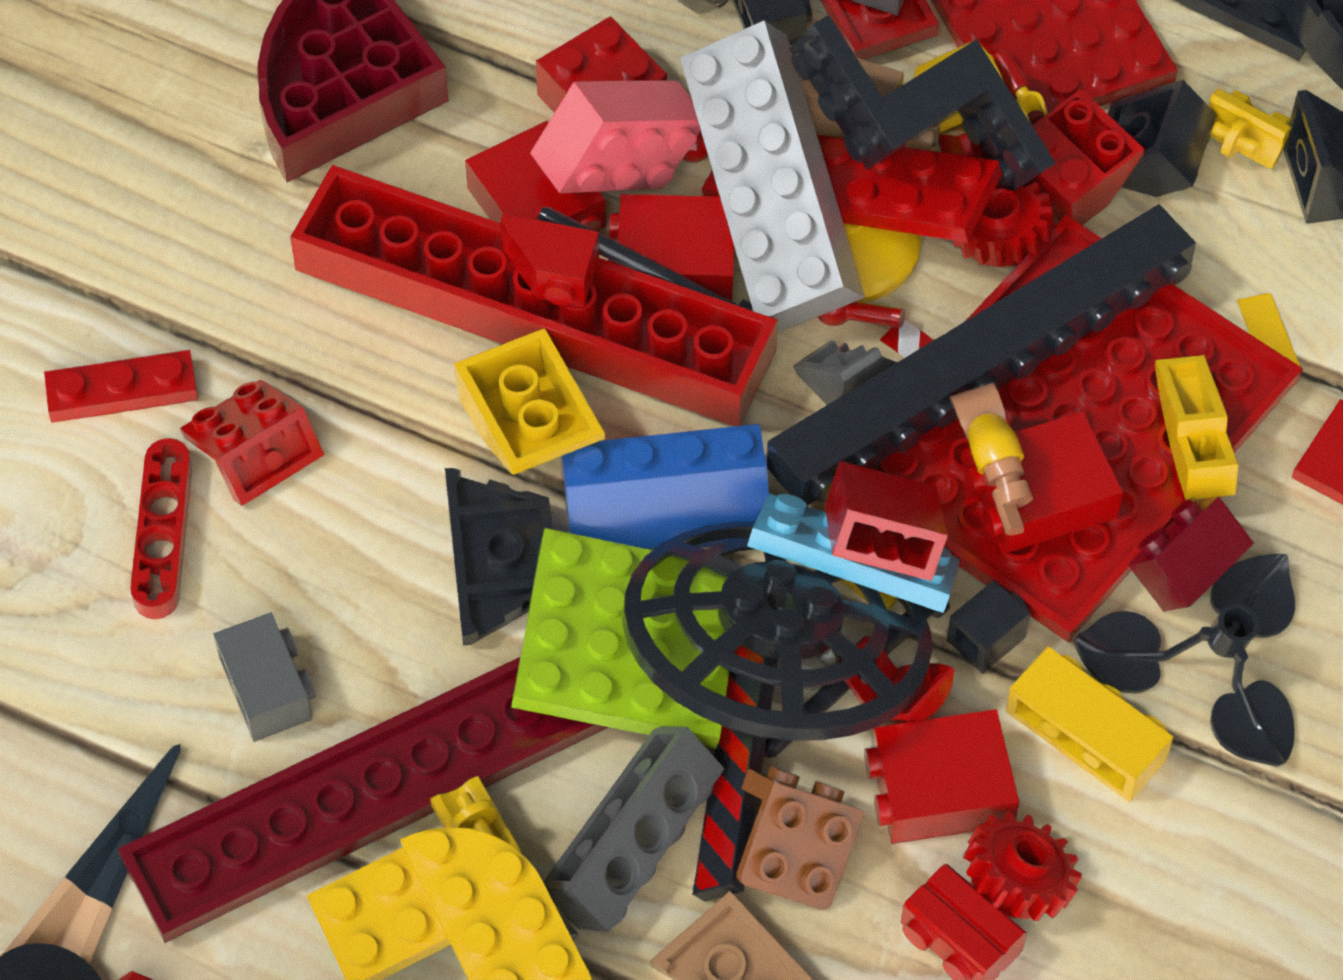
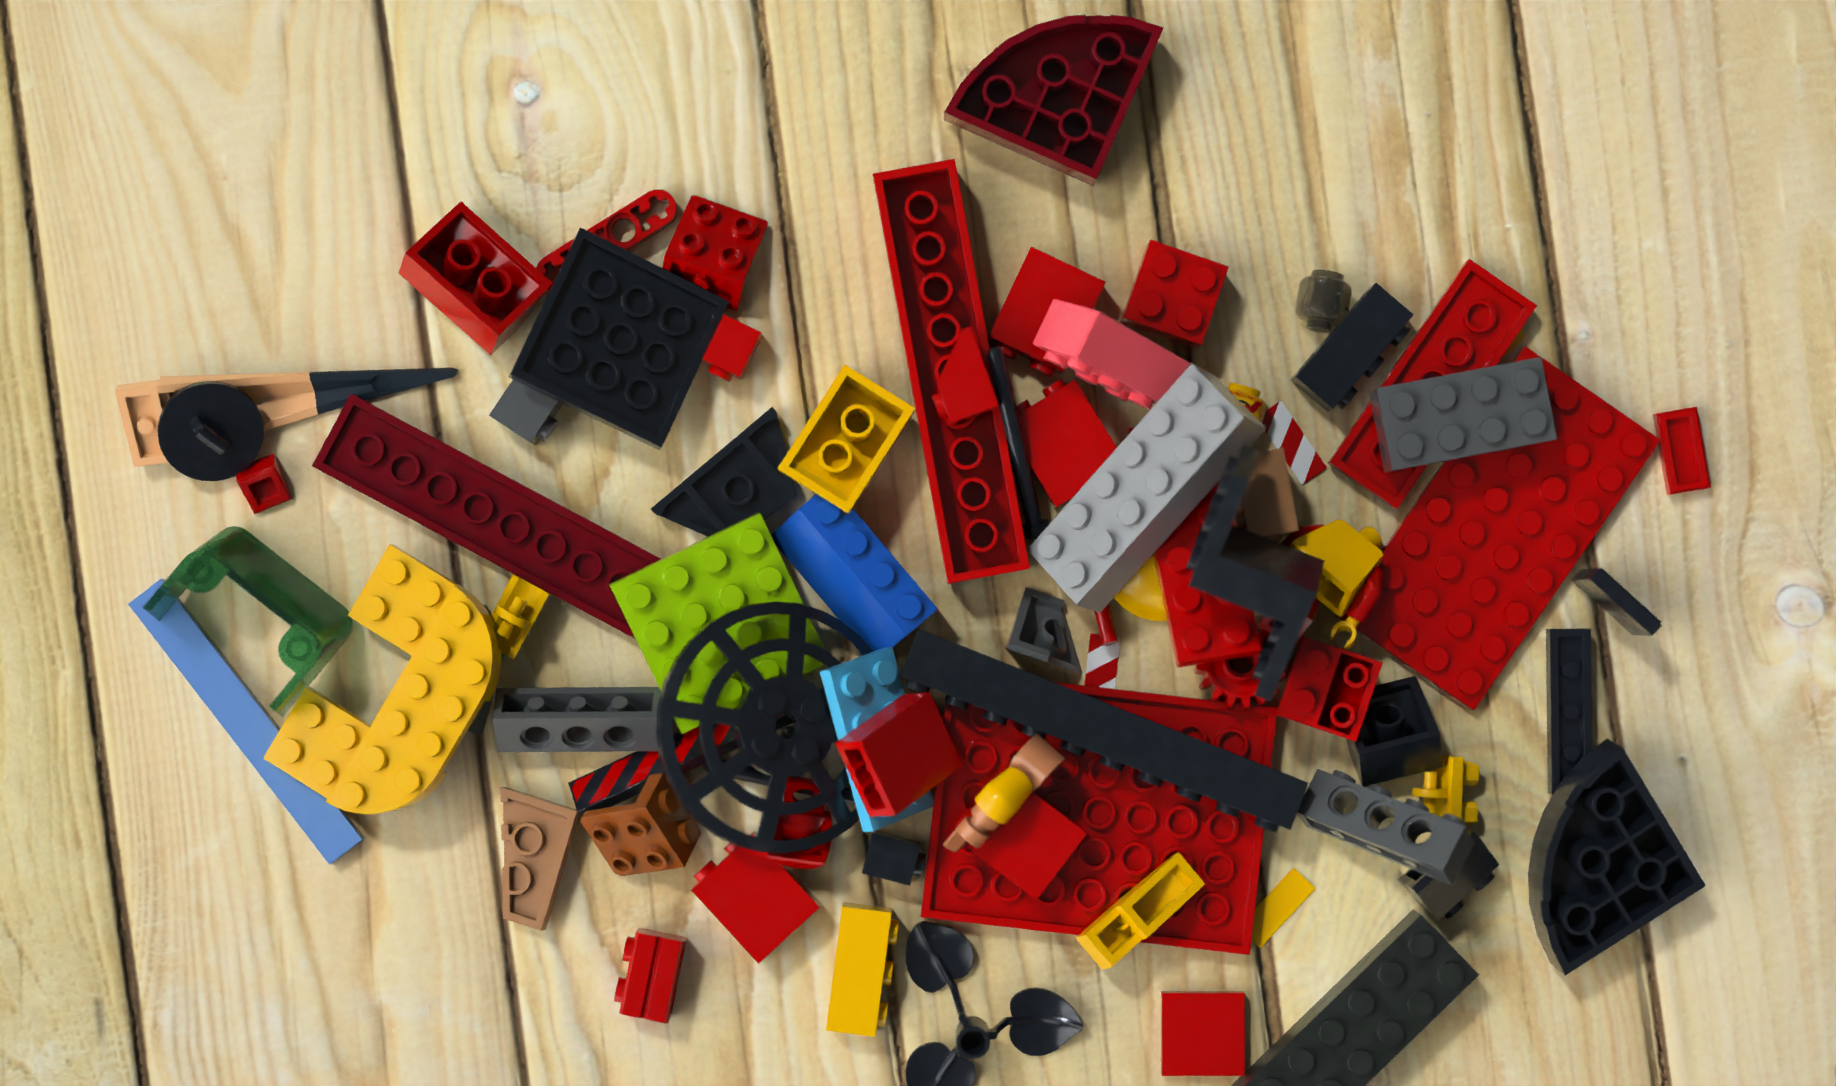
camera: 55 degrees right, 30 degrees up
(98, 658) = (474, 277): none -> red slope
(120, 386) = (698, 128): red plate -> none
(268, 553) = (619, 339): none -> black plate
(358, 471) = (731, 349): none -> red brick
(1021, 867) = (729, 1004): red gear -> none
(1190, 552) = (1035, 964): dark red brick -> none
(1248, 163) = (1438, 857): none -> dark grey brick

